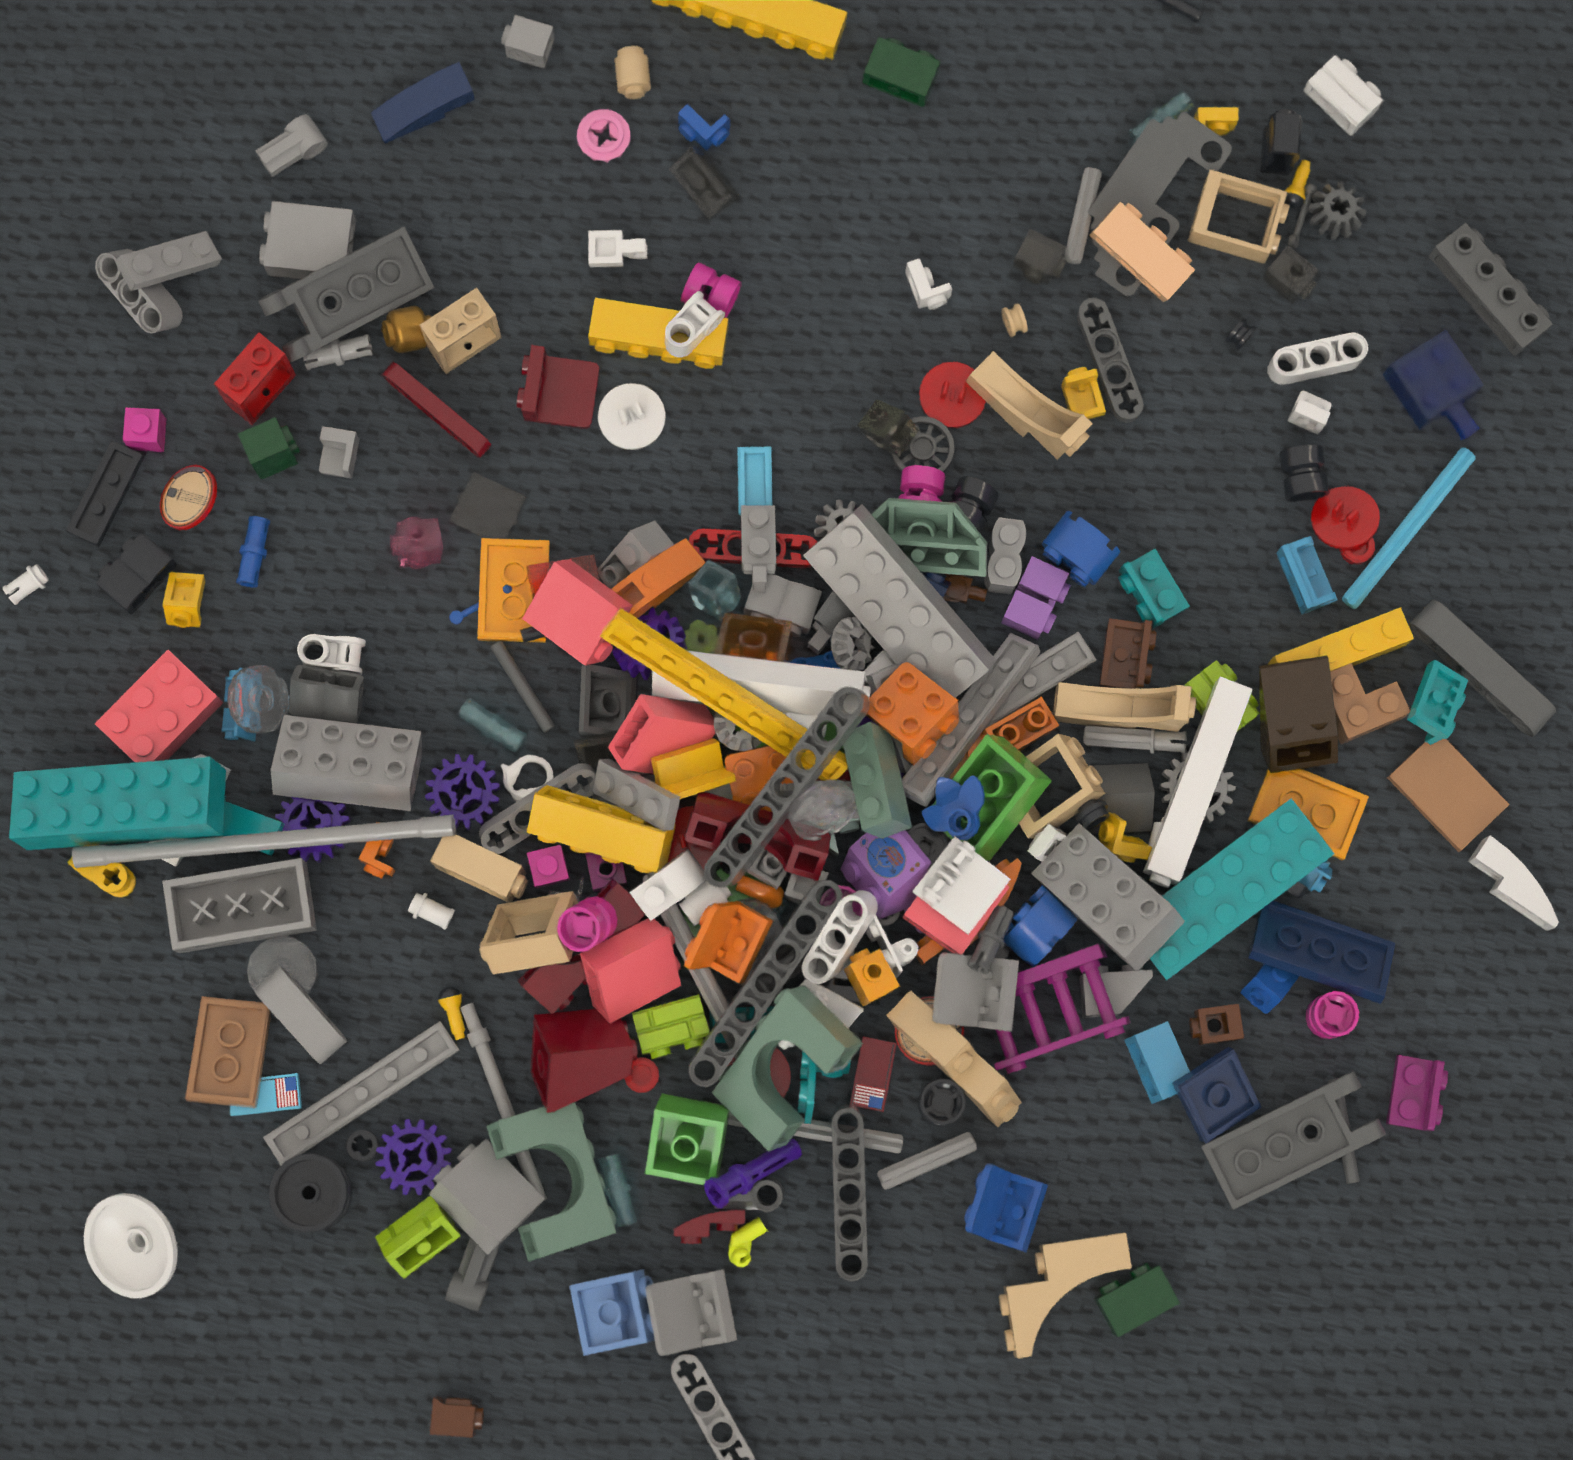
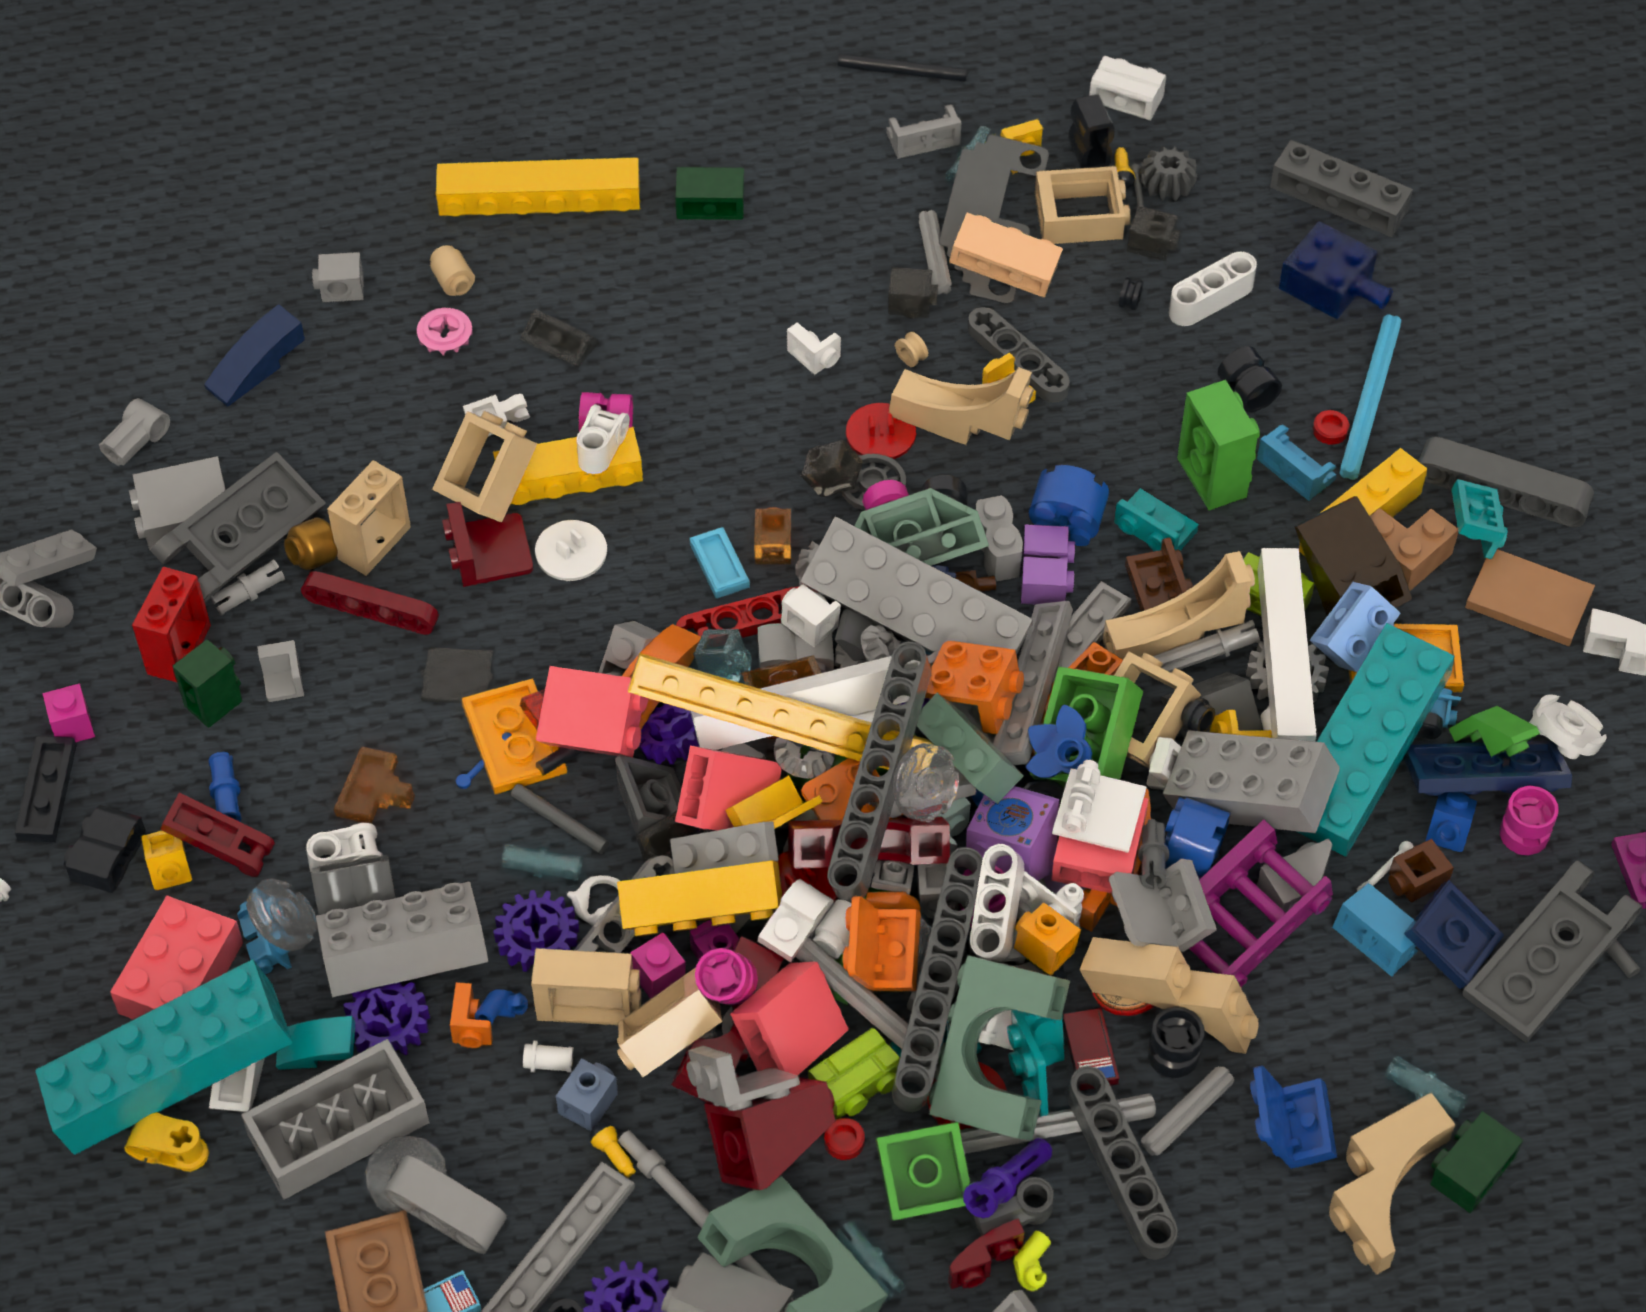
camera: 15 degrees left, 25 degrees down
(103, 855) = (167, 1113): light grey piece -> none
(188, 497) = (137, 760): piece -> none
(229, 598) = (217, 834): none -> dark red plate
(375, 597) = (372, 786): none -> clear orange hinge
(411, 848) = (503, 1004): none -> blue arm
(417, 542) = (397, 719): clear pink brick -> none
(450, 958) = (587, 1094): none -> sand blue brick
(548, 319) = (505, 472): none -> tan window
(563, 1025) = (716, 1080): none -> light grey bracket
(697, 129) = (537, 294): blue bracket -> none
(758, 544) = (748, 603): light grey hinge -> none
(802, 582) = (809, 614): none -> white brick
(810, 460) = (772, 536): none -> clear orange brick
(1129, 1217) = (1423, 1083): none -> clear light blue pin
(1130, 74) = (925, 135): none -> light grey hinge
(1219, 993) = (1403, 847): none -> white hinge
(1236, 545) = (1217, 444): none -> bright green brick
(1269, 778) = (1354, 626): none -> light blue brick
(1310, 412) = (1229, 331): white bracket -> none
(1345, 518) = (1307, 405): red piece -> none
(1346, 922) = (1498, 729): none -> bright green slope
(1396, 933) = (1568, 726): none -> white plate

